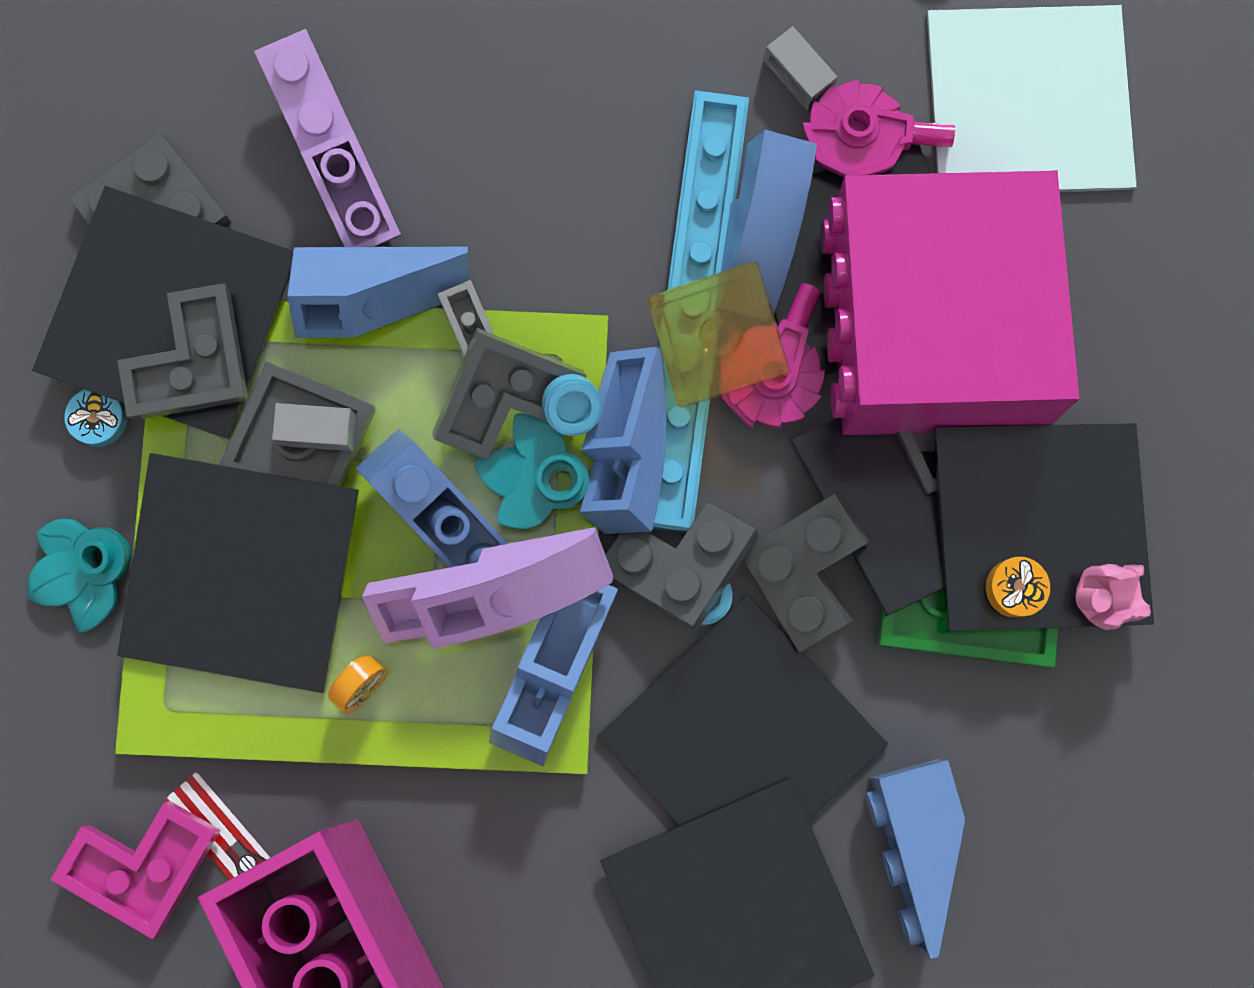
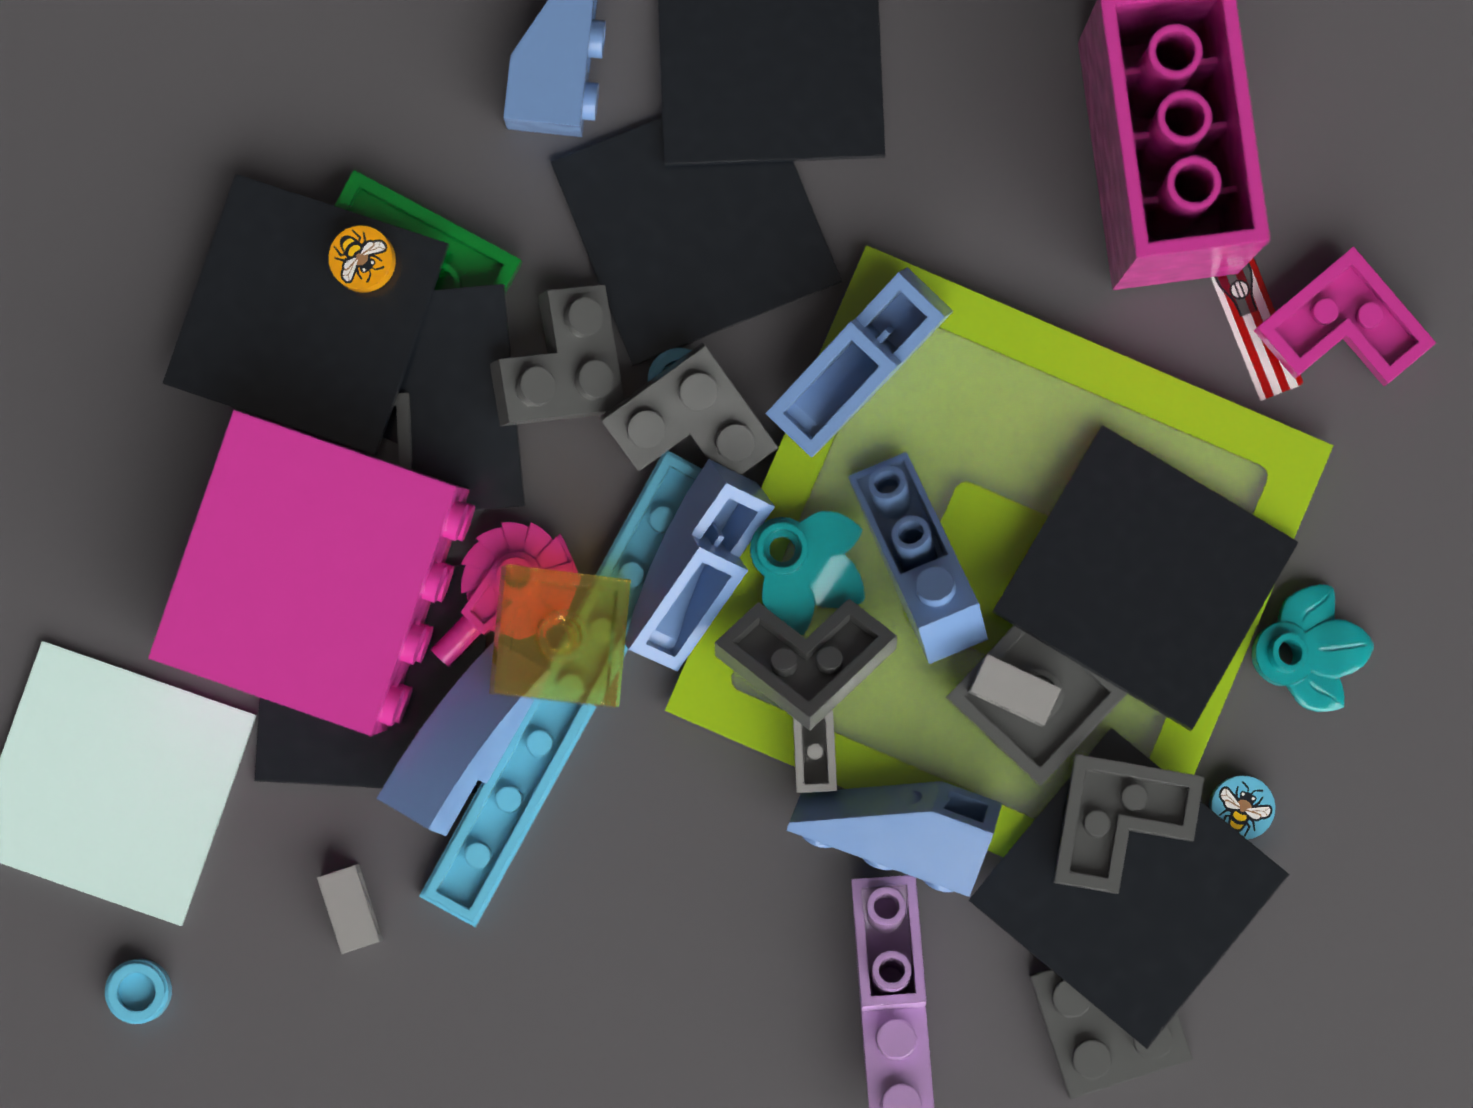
camera: 155 degrees left, 5 degrees up
(356, 683) = (1064, 418): light orange tile -> none
(495, 594) = (890, 446): lavender slope -> none
(572, 404) = (741, 617): medium azure tile -> none
(864, 132) = (313, 809): dark pink piece -> none
(1111, 595) = (270, 213): bright pink arm -> none

